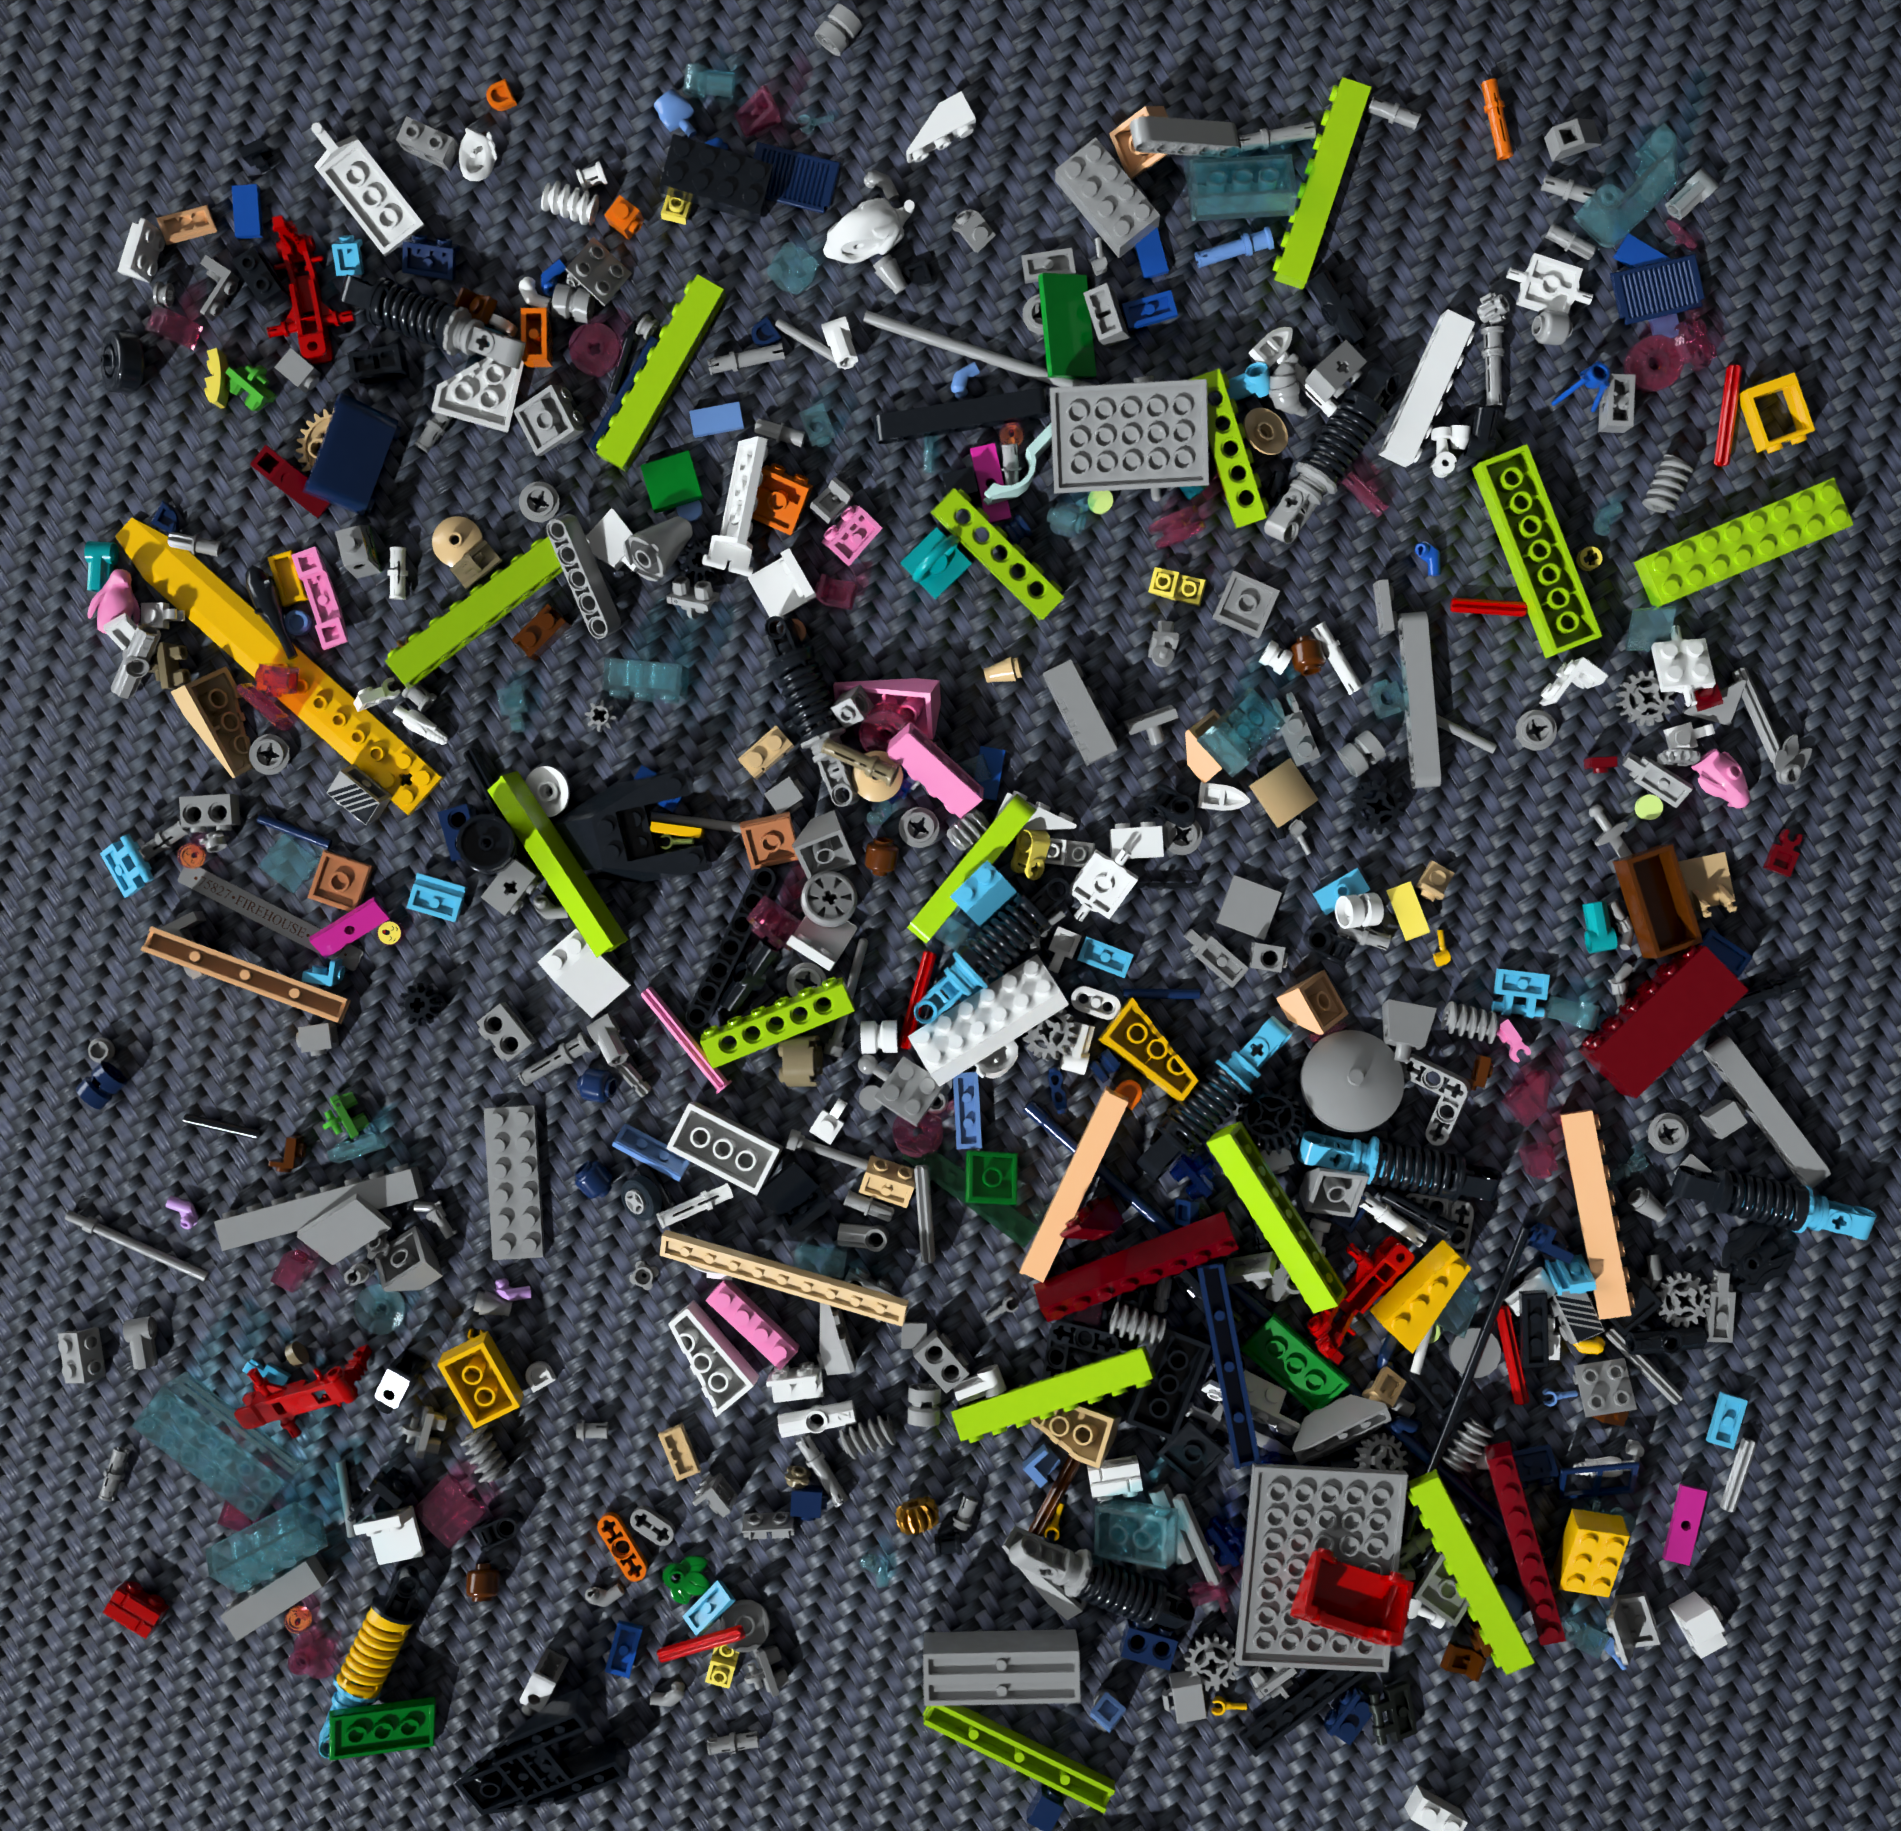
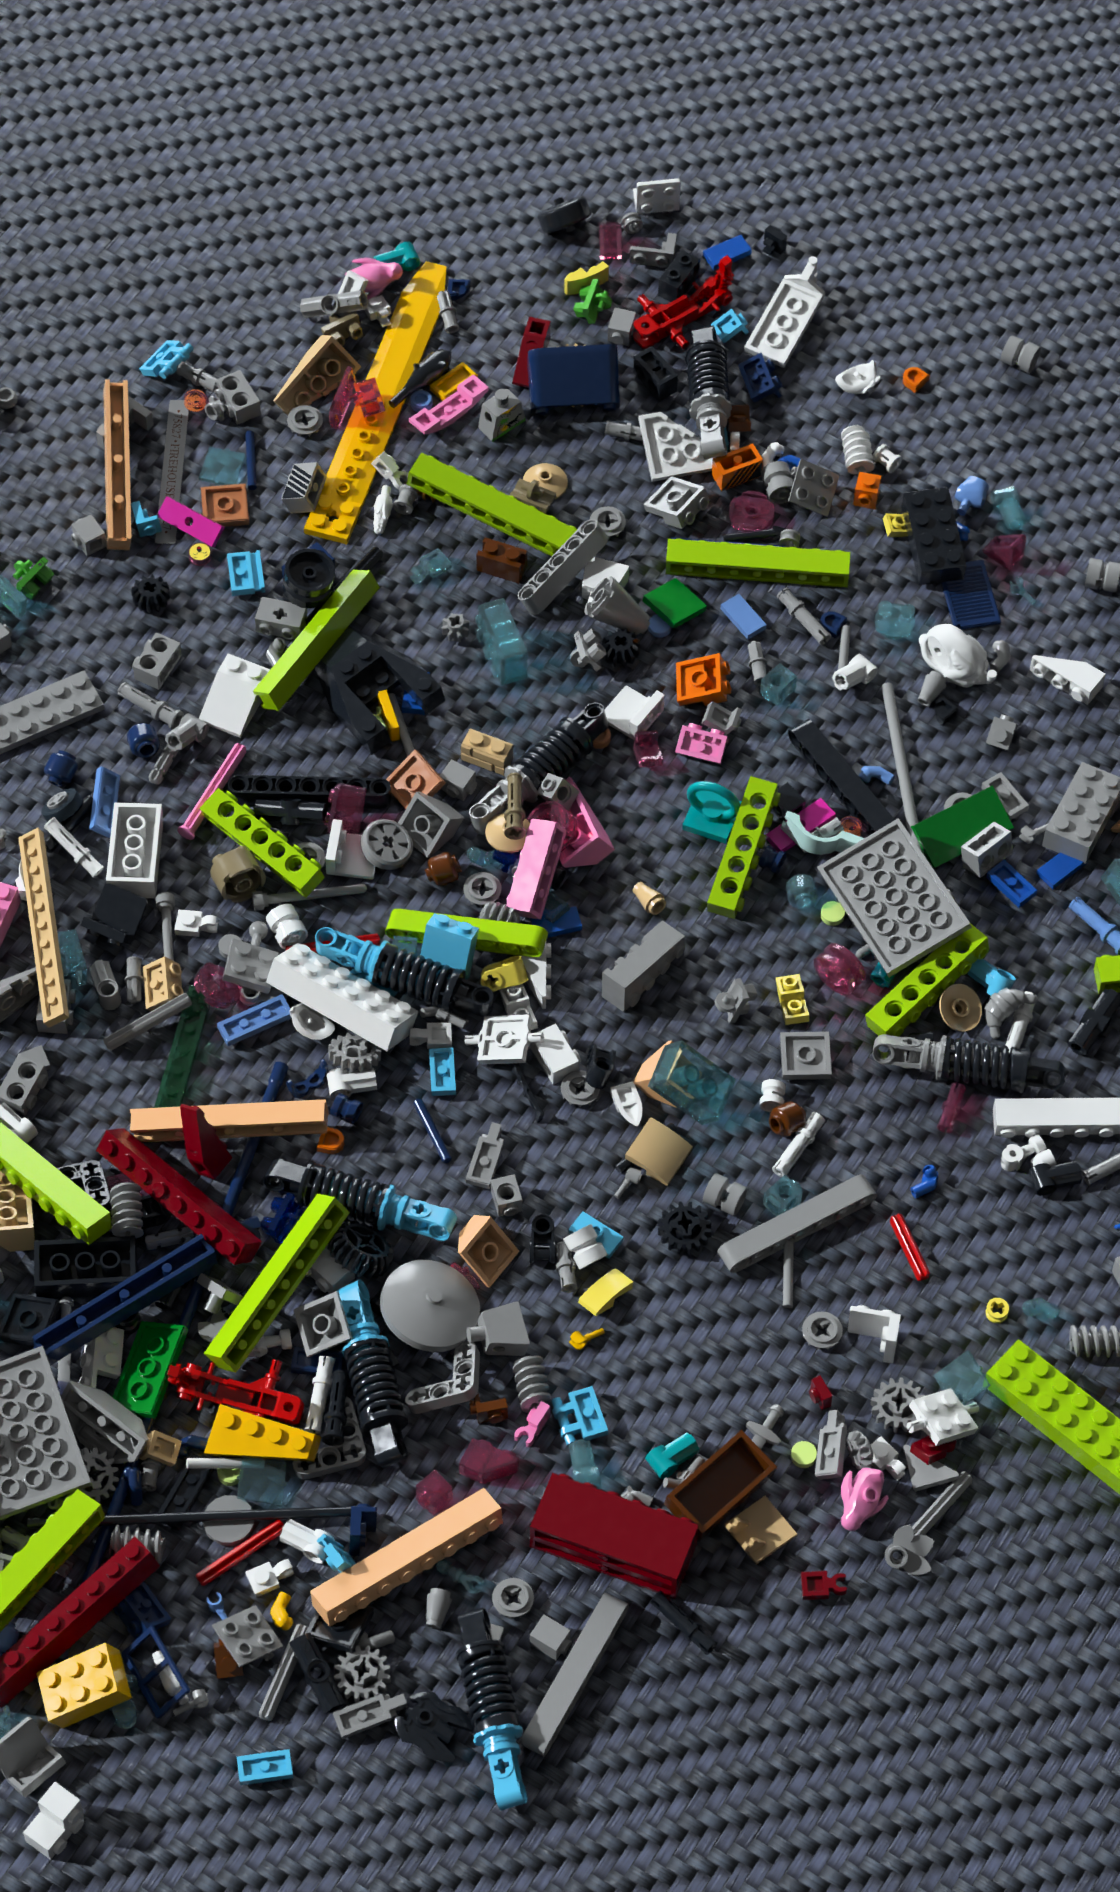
camera: 65 degrees right, 30 degrees down
(186, 224) = (694, 217): light nougat plate -> none
(397, 573) = (497, 449): white pin -> none
(428, 143) = (847, 343): light grey brick -> none
(539, 783) = (375, 613): white dish -> none
(738, 512) = (644, 660): white hinge -> none
(928, 456) = (799, 775): clear light blue pin -> none
(991, 1177) = (204, 1059): green tile -> none
(1001, 1309) = (90, 1119): light grey hand -> none
(1095, 1002) = (398, 1082): white plate -> none
(1143, 1047) = (378, 1128): yellow wedge -> none
(1151, 723) = (664, 1024): light grey tile -> none
(1248, 907) = (543, 1167): light grey tile -> none
(1272, 346) = (1032, 982): white plate -> none
(1296, 732) = (717, 1141): light grey hinge -> none
(1335, 371) = (1040, 1035): light grey brick -> none
(1383, 596) = (857, 1164): light grey plate -> none
(1434, 881) = (643, 1305): tan bracket -> none
(1534, 1328) = (274, 1549): black tile -> none
(1536, 551) = (976, 1257): lime brick -> none
(1576, 1316) = (296, 1586): brick -> none
(1682, 1539) = (130, 1775): dark pink tile -> none
(1728, 953) = (704, 1576): blue tile -> none
(1738, 1474) = (216, 1803): light grey axle -> none

